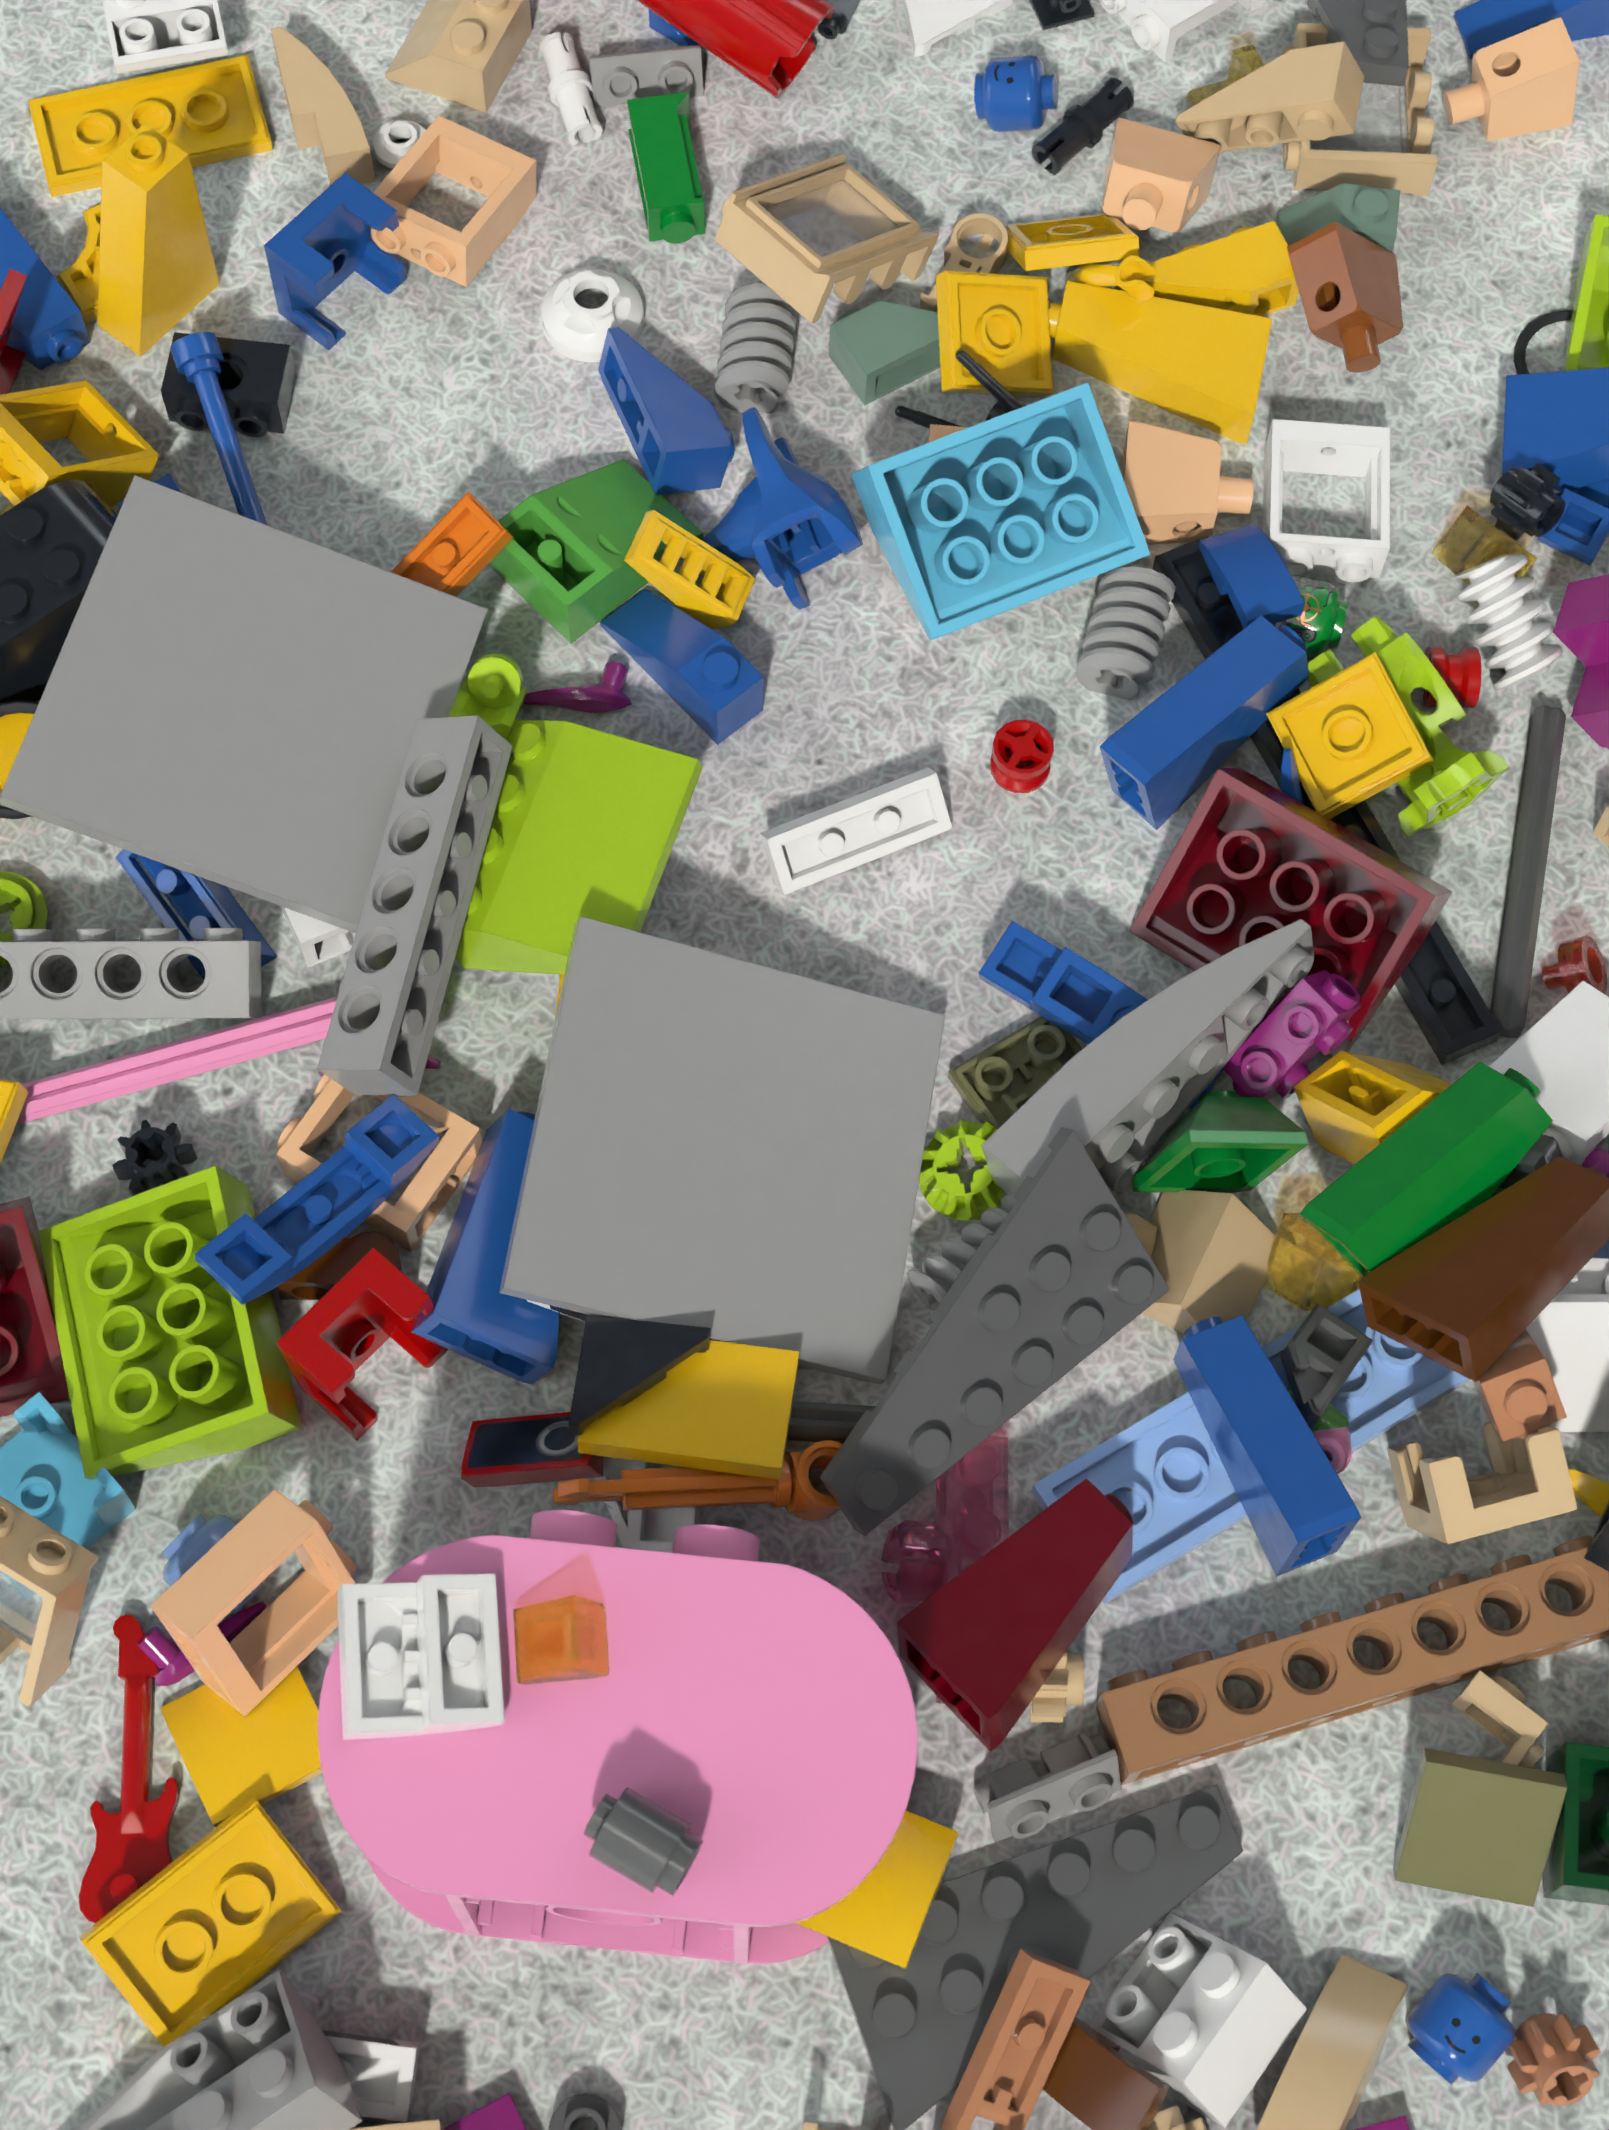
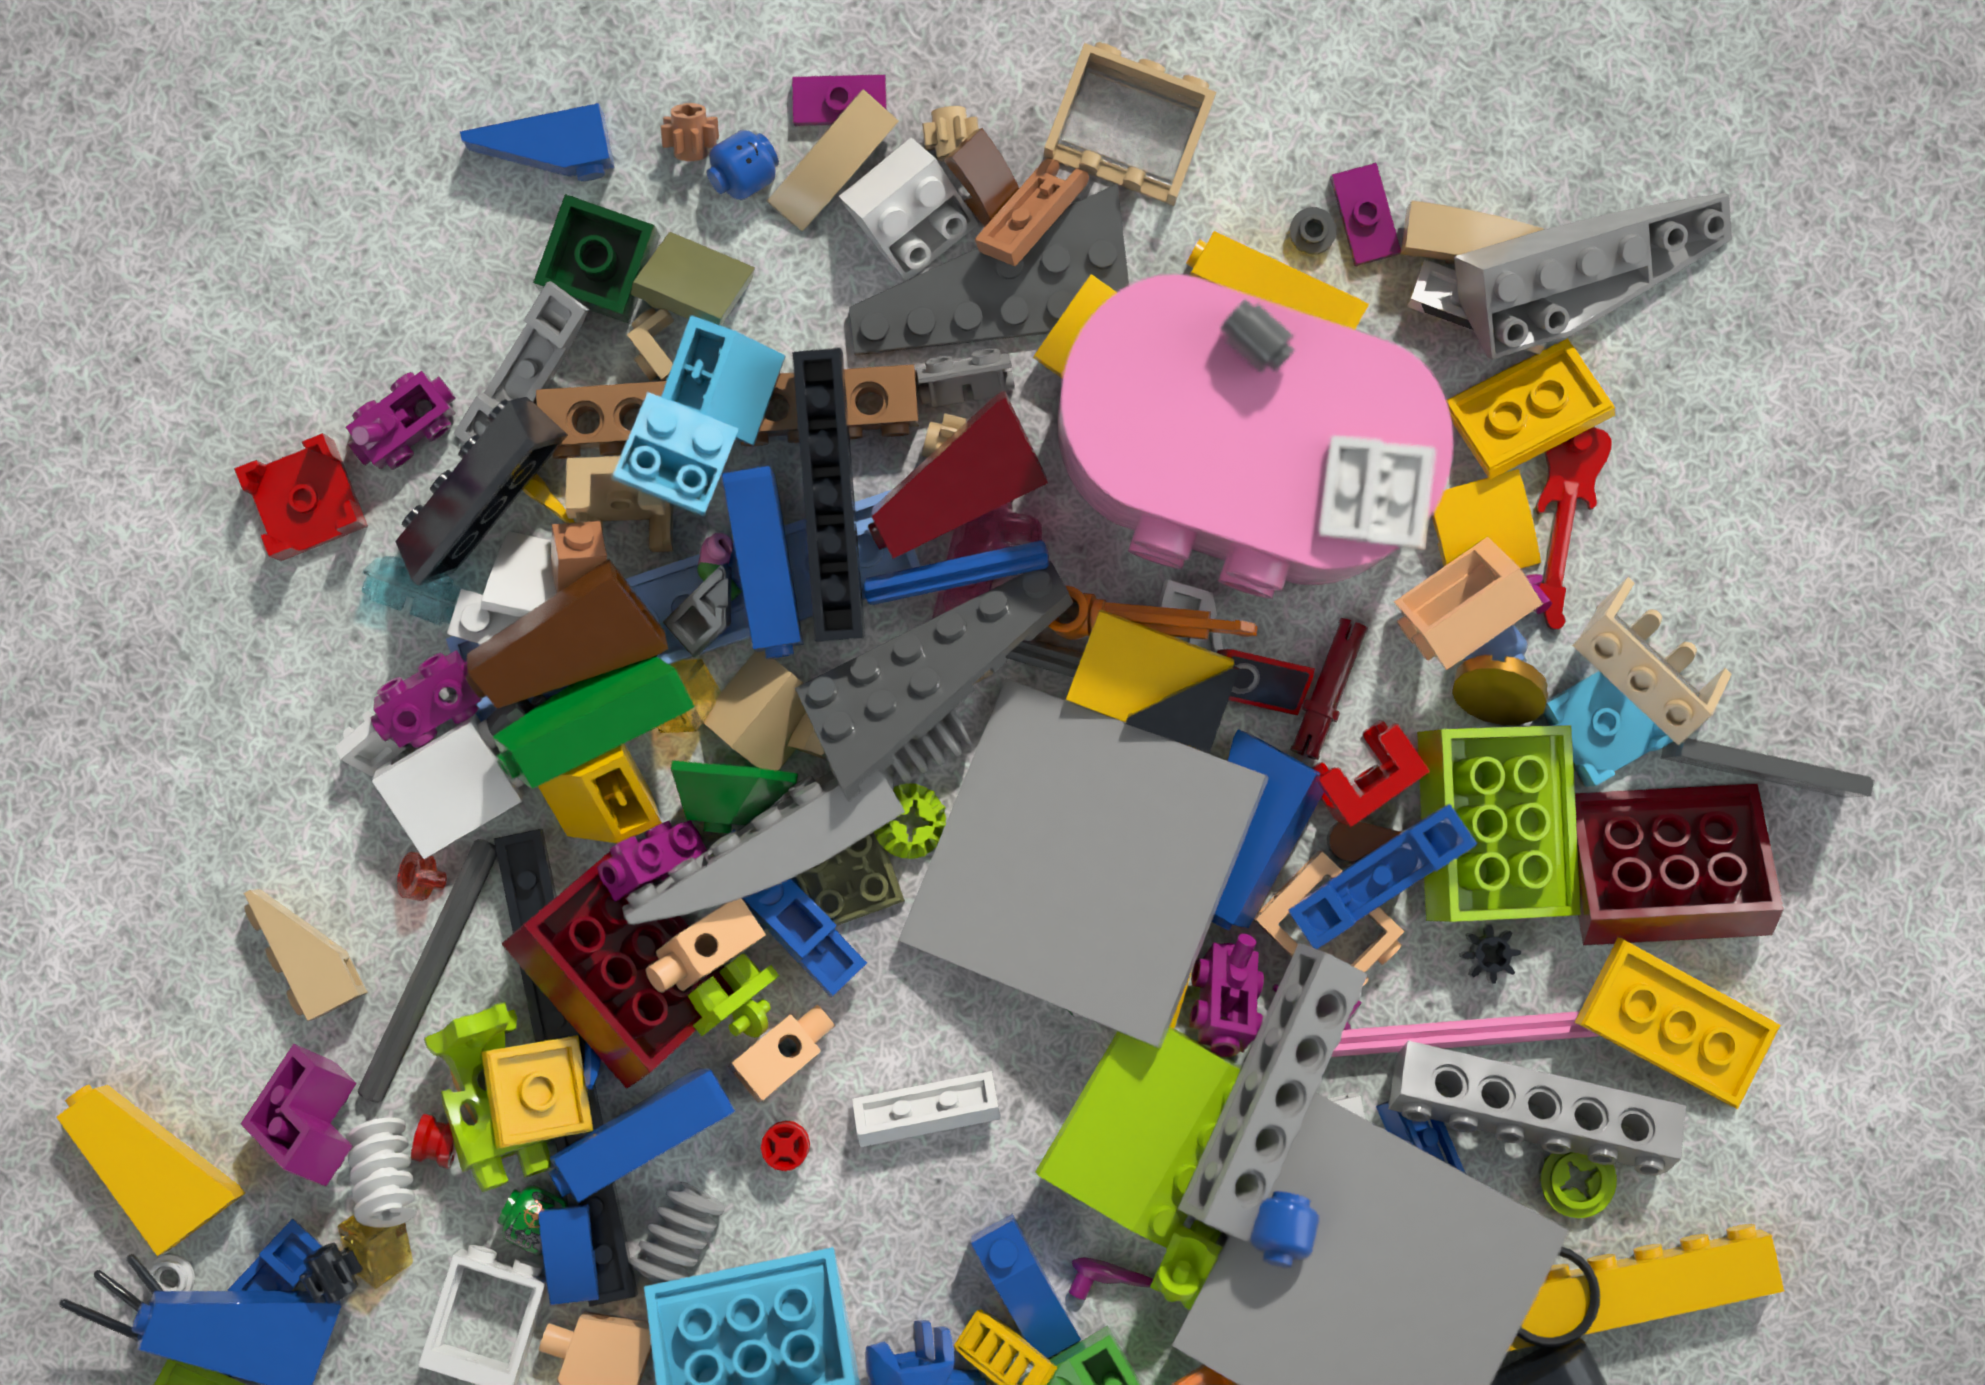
camera: 165 degrees left, 20 degrees up
(180, 1496) = (1500, 691): none -> pearl gold tile
(370, 744) = (1285, 1229): none -> blue head
(435, 1460) = (1329, 689): none -> dark red pin
(498, 1038) = (1228, 996): none -> magenta brick
(561, 1641) = (1283, 482): clear yellow slope -> none
(620, 2007) = (1260, 276): none -> yellow slope
(990, 1488) = (956, 572): none -> blue axle
(1072, 826) = (765, 1068): none -> light nougat torso
(1154, 877) = (716, 1005): none -> lime hips
(1172, 944) = (705, 946): none -> light nougat torso
(1202, 1549) = (828, 494): none -> black brick
(1398, 1669) = (724, 376): none -> medium azure slope
(1434, 1520) = (675, 454): none -> medium azure slope

